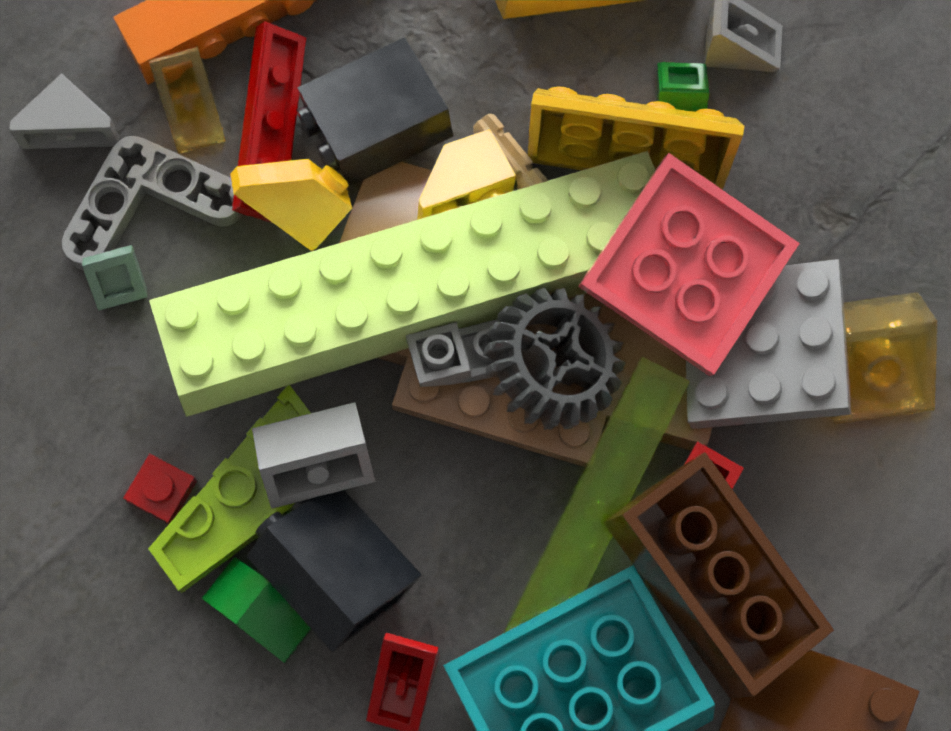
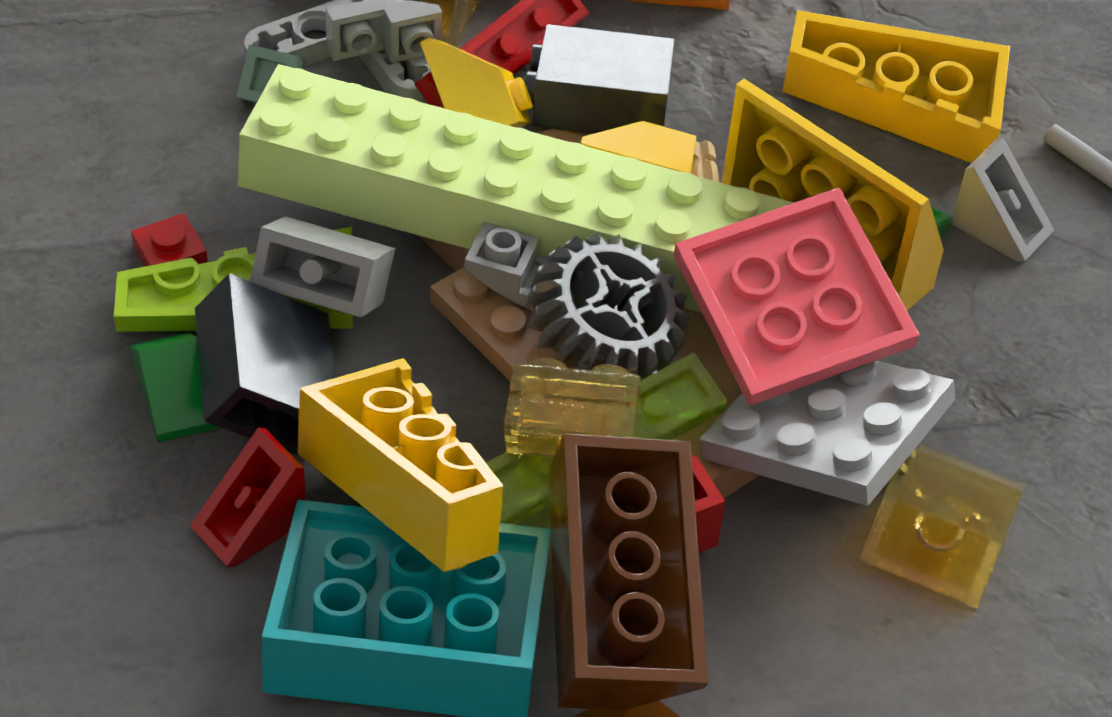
camera: 30 degrees right, 25 degrees down
(189, 169) = (381, 25): none -> light grey slope
(507, 597) = (402, 462): none -> yellow wedge
(599, 472) = (558, 400): none -> clear yellow brick

